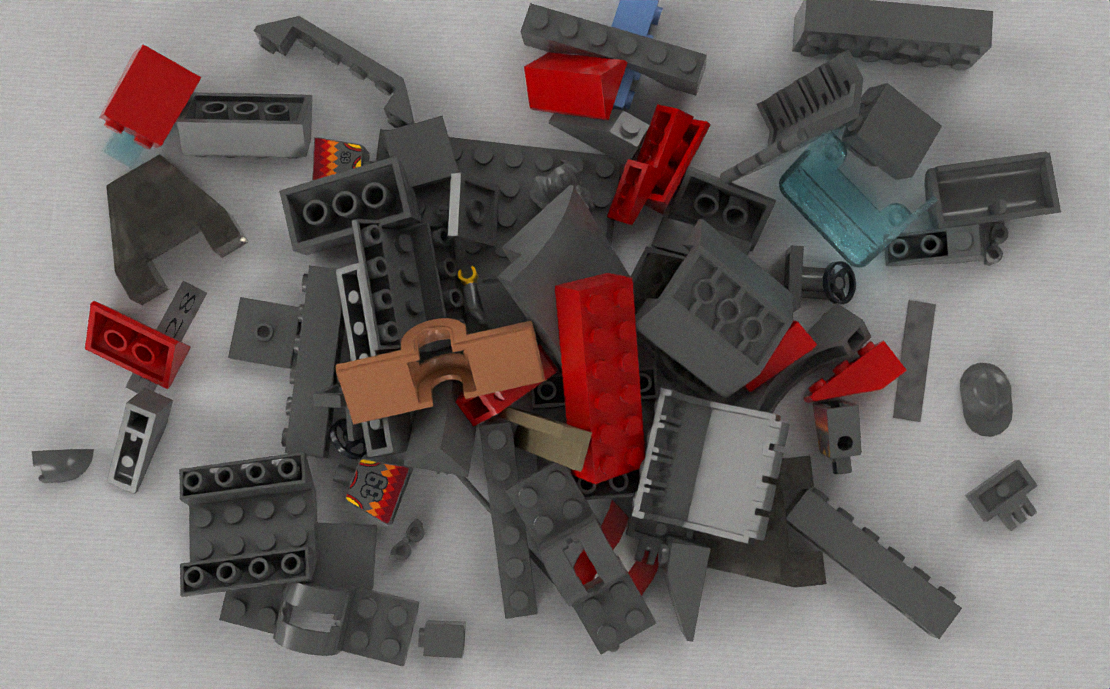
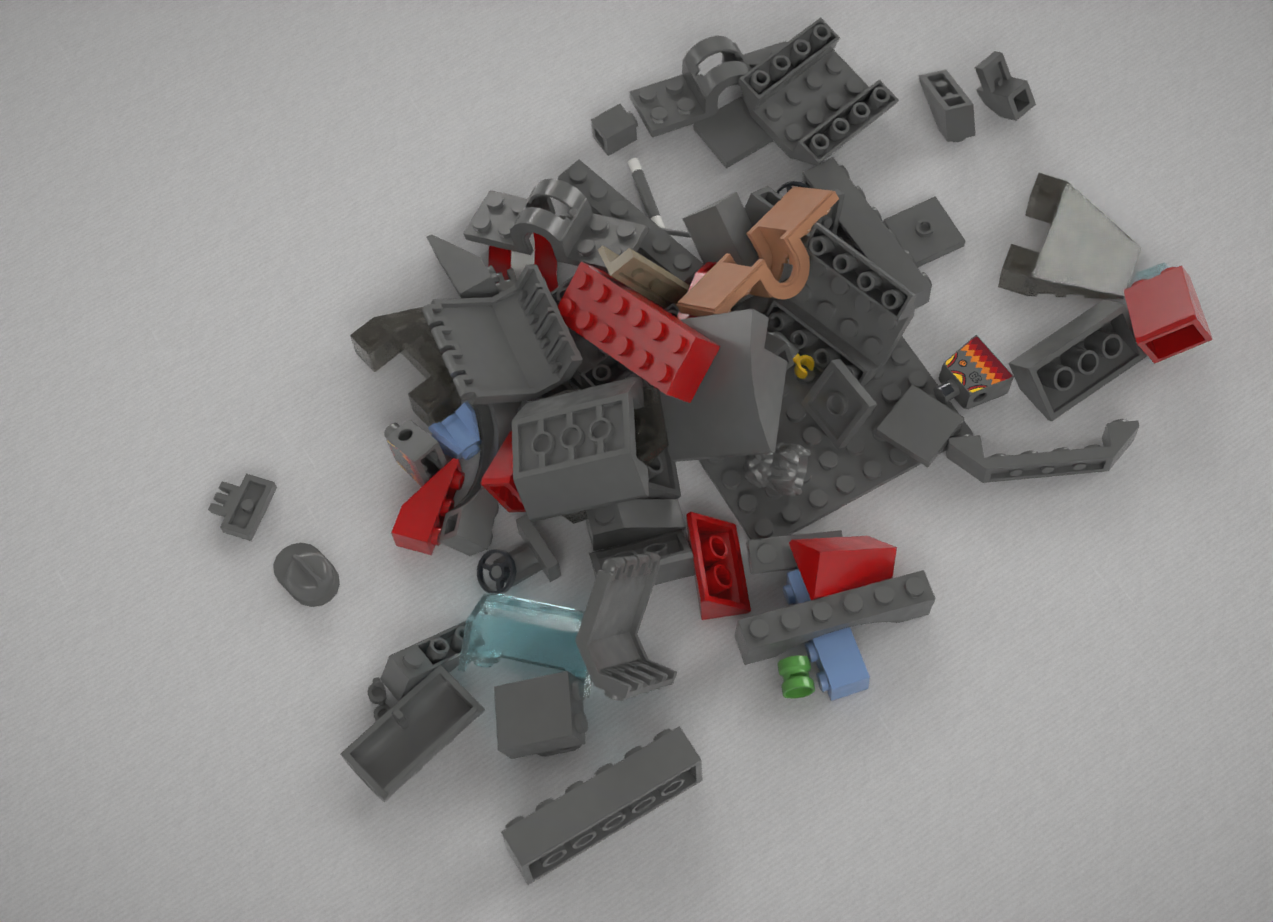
camera: 155 degrees right, 20 degrees down
(62, 465) = (1001, 44): dark grey brick -> none
(82, 412) = (1000, 92): none -> dark grey brick
(134, 345) = (1011, 162): red slope -> none
(174, 324) = (994, 183): flat silver sticker -> none
(323, 210) = (935, 341): dark grey slope -> none
(375, 487) = (747, 177): torso -> none
(413, 534) = (693, 168): dark grey piece -> none
(465, 550) = (645, 192): none -> dark grey bar
(641, 176) = (728, 535): red slope -> none
(675, 29) = (796, 677): none -> bright green wheel
(802, 422) = (458, 433): none -> medium blue brick
(872, 563) = (322, 384): dark grey brick -> none
(915, 360) = (389, 564): flat silver sticker -> none

